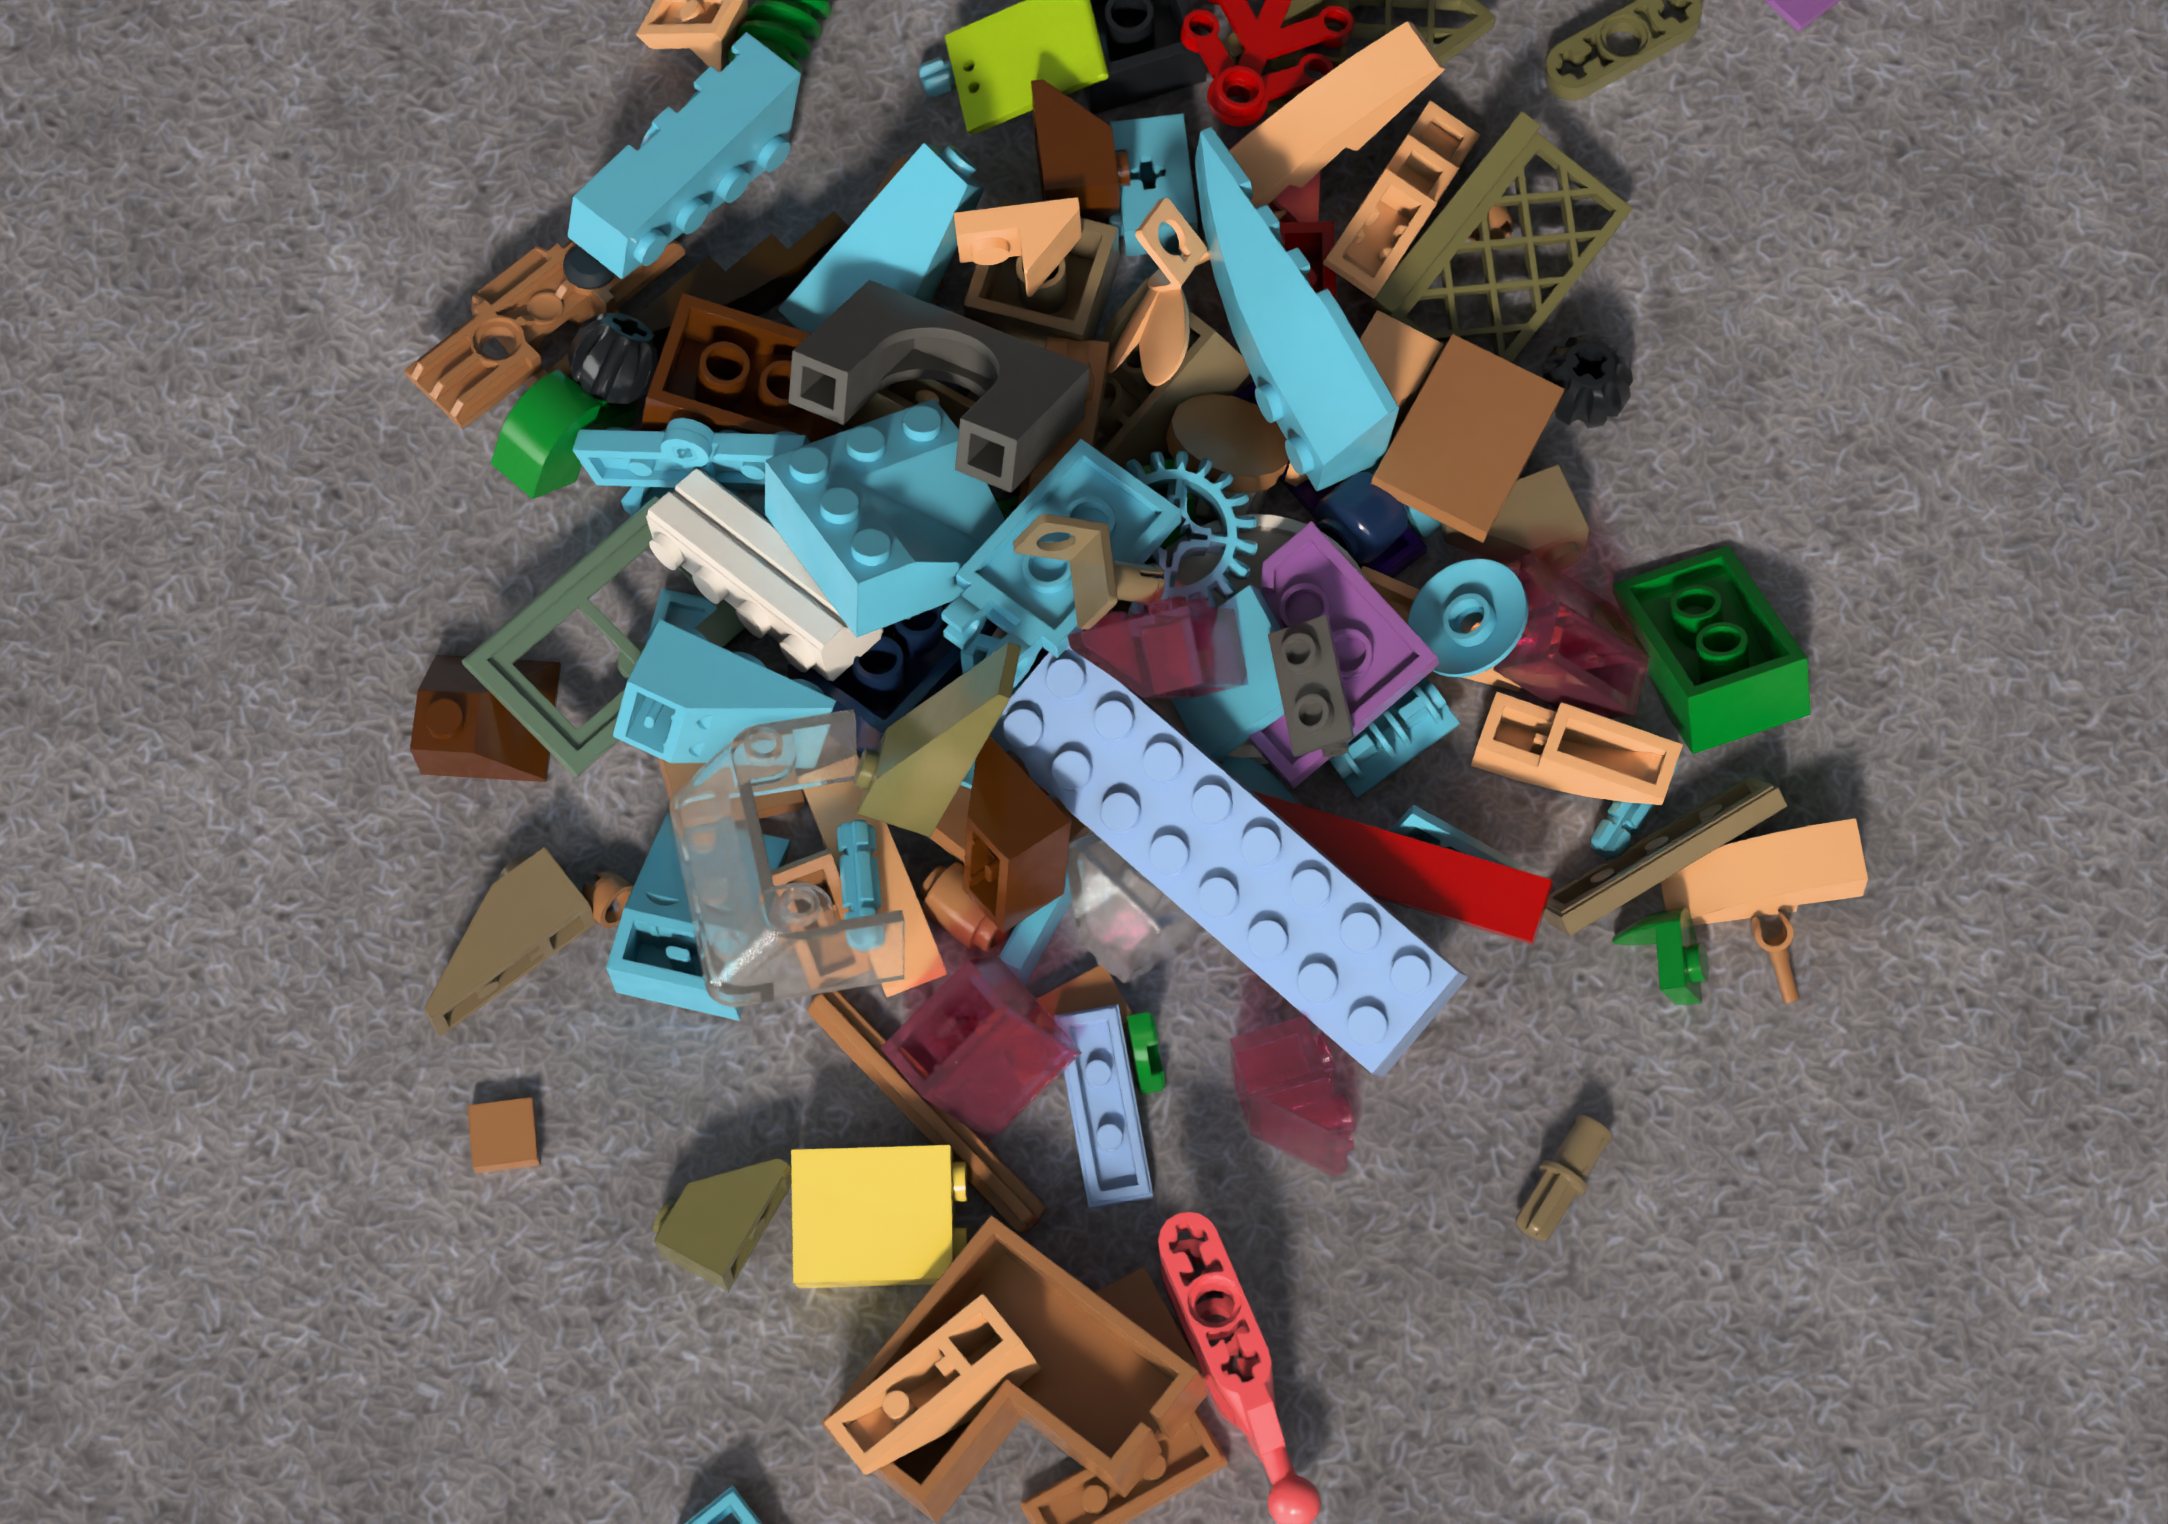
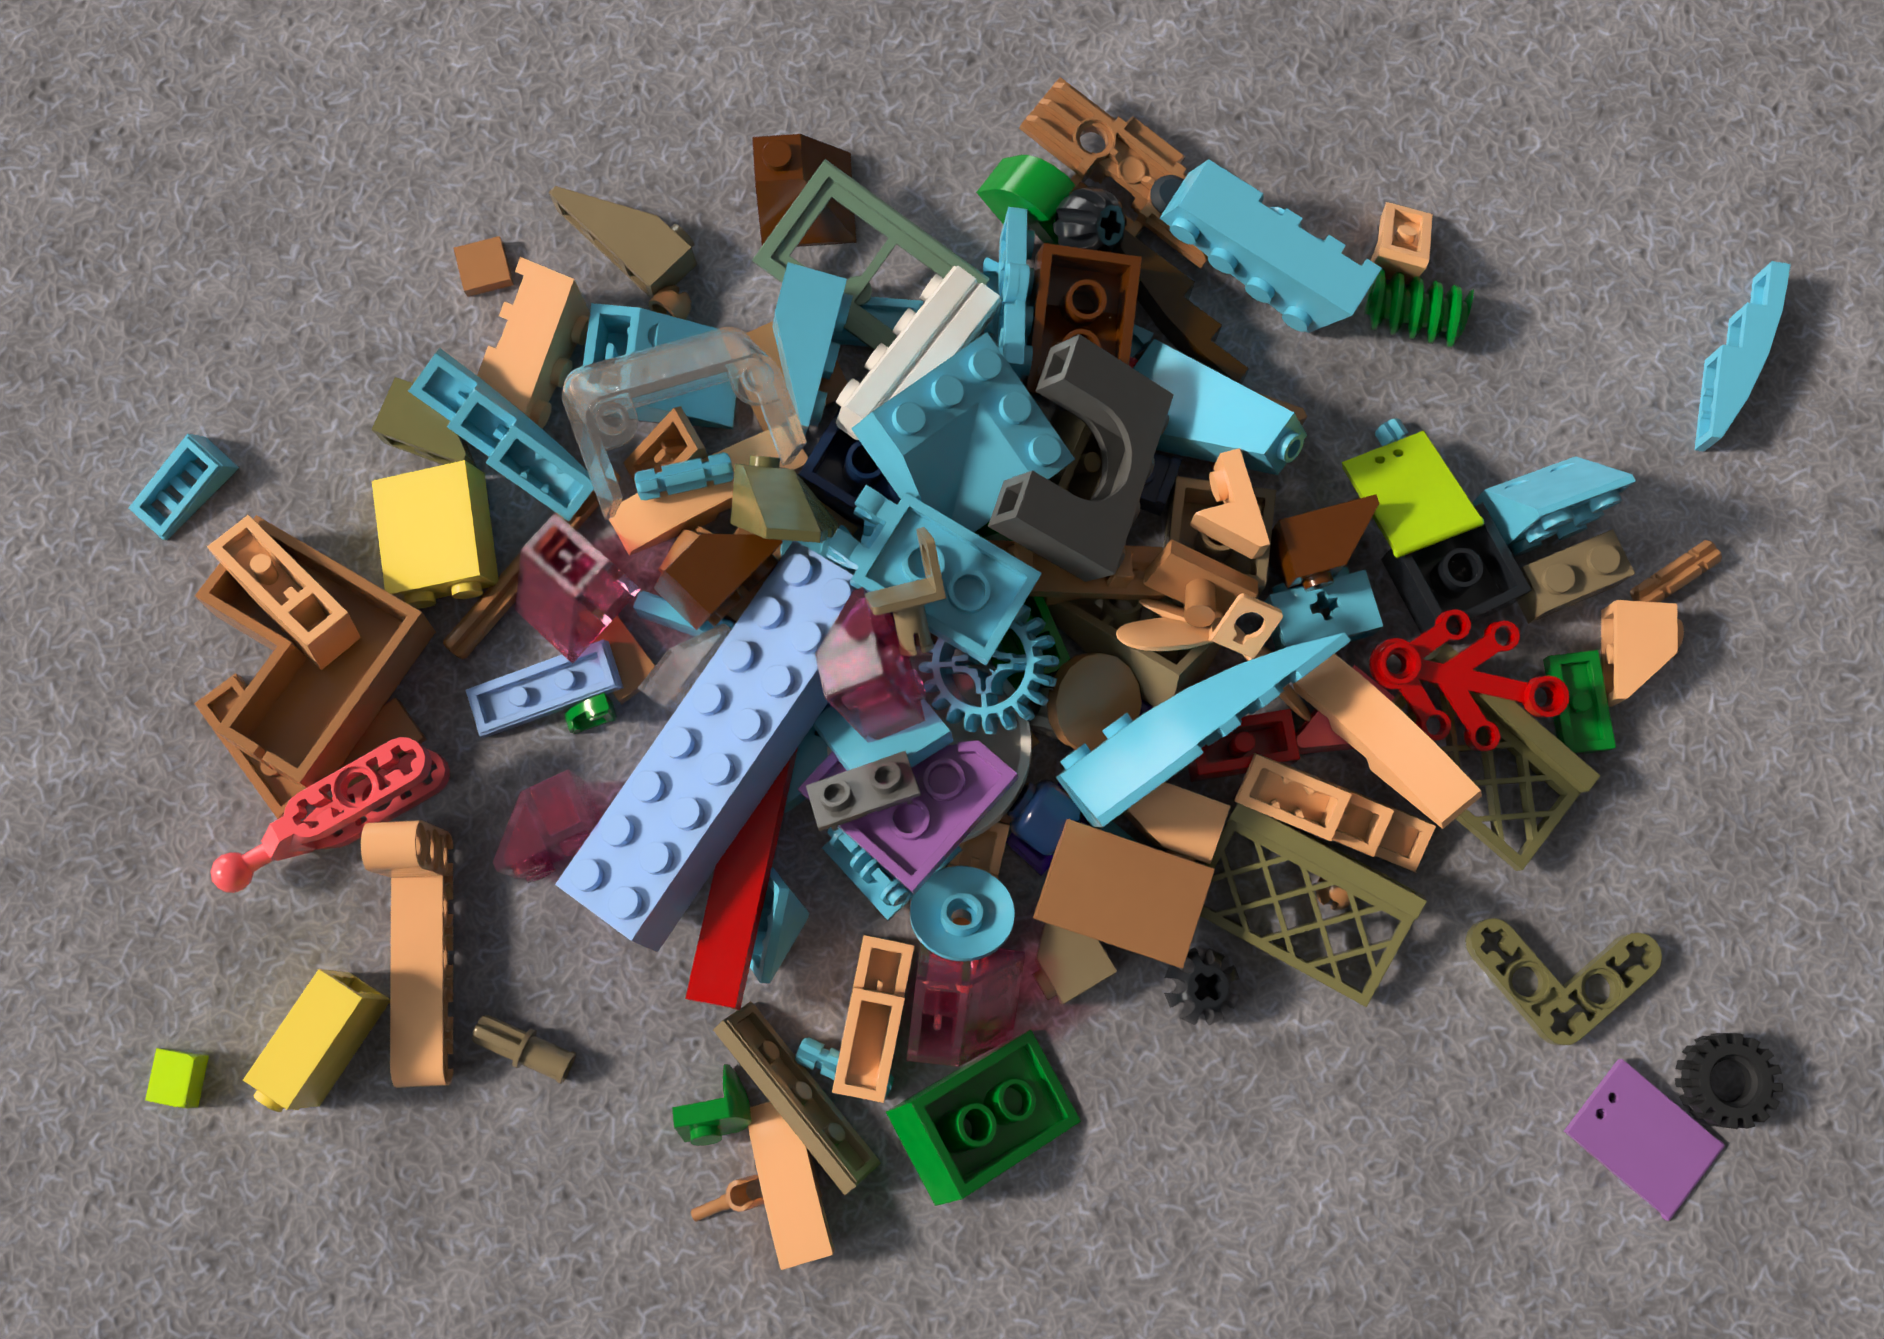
camera: 75 degrees right, 10 degrees up
(646, 1069) = (537, 340): none -> light nougat wedge
(763, 1100) = (503, 433): none -> medium azure slope
(1105, 294) = (1198, 582): none -> medium nougat tile
(1422, 1284) = (421, 936): none -> light nougat beam
(1526, 1407) = (315, 1041): none -> light yellow brick

